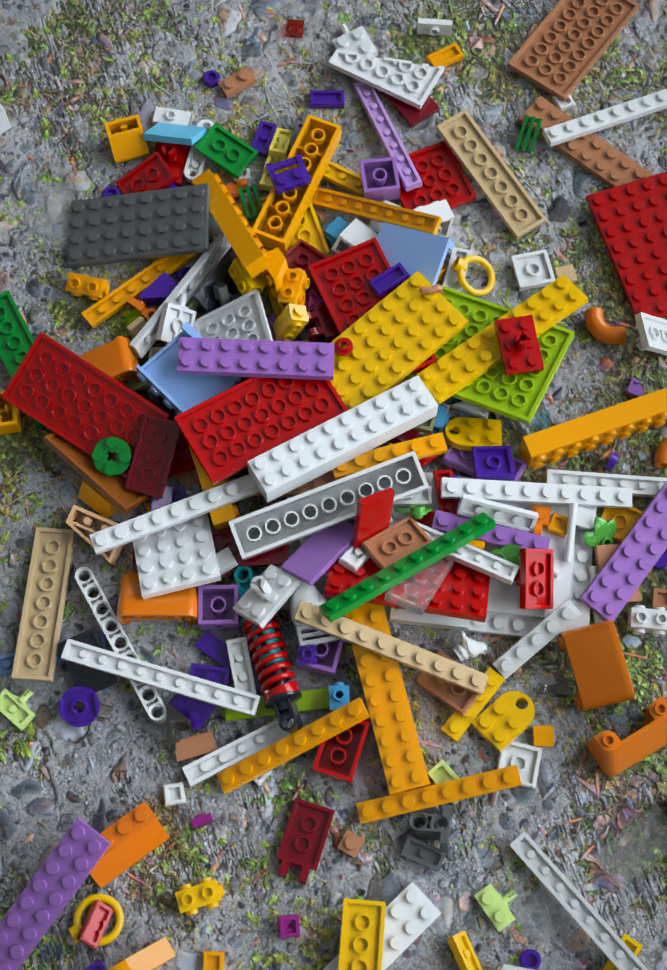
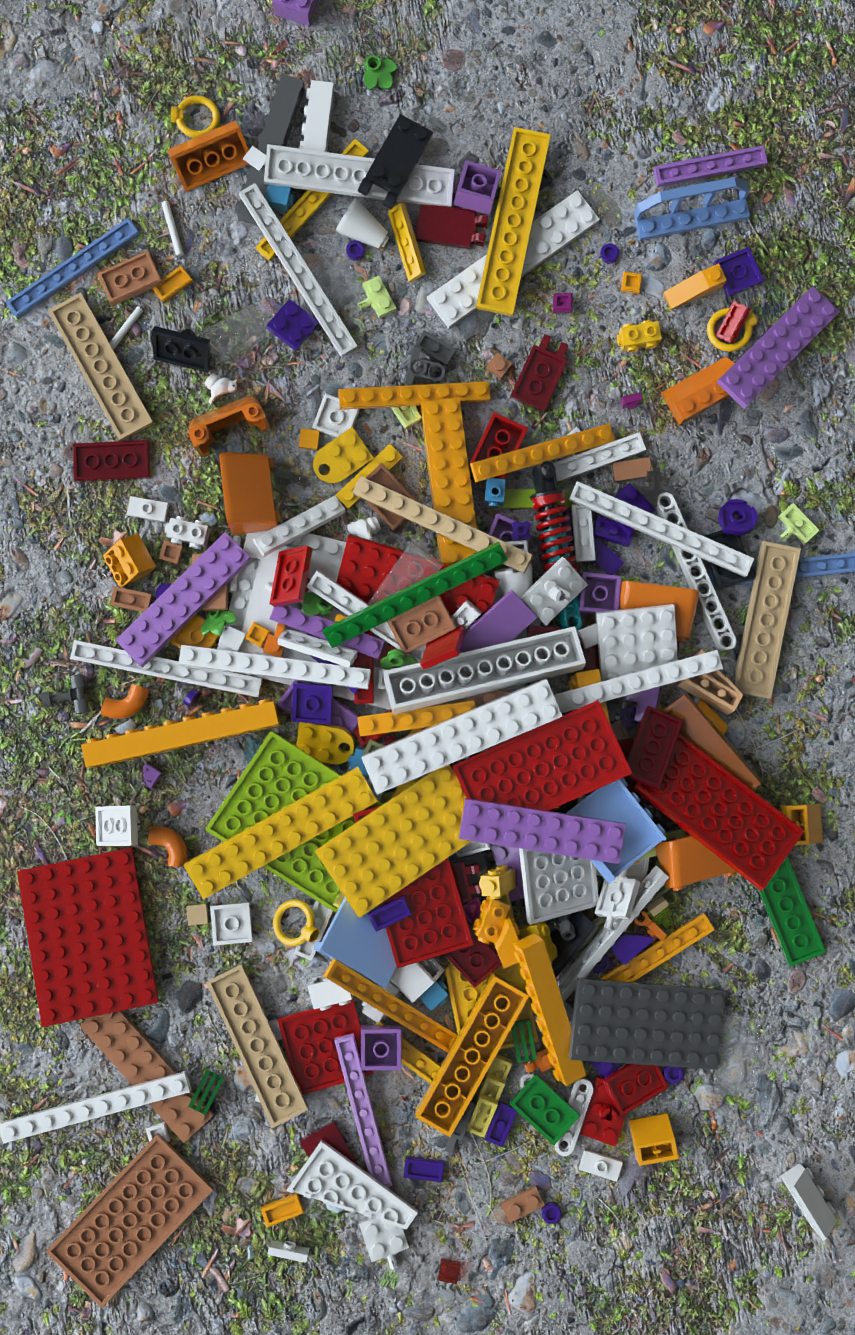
camera: 175 degrees left, 15 degrees up
(87, 285) = (706, 961): light orange brick -> none
(112, 445) = (693, 764): green plate -> none
(174, 133) = (600, 1136): medium azure tile -> none
(174, 794) = (654, 429): white tile -> none
(291, 178) = (479, 1054): dark purple plate -> none
(343, 351) = (444, 832): red plate -> none
(431, 290) = (348, 890): nougat piece -> none
(518, 345) = (266, 816): red plate -> none
(570, 532) = (248, 623): white bar -> none
(584, 860) = (292, 325): none -> dark purple plate
(648, 780) = (219, 386): none -> white animal

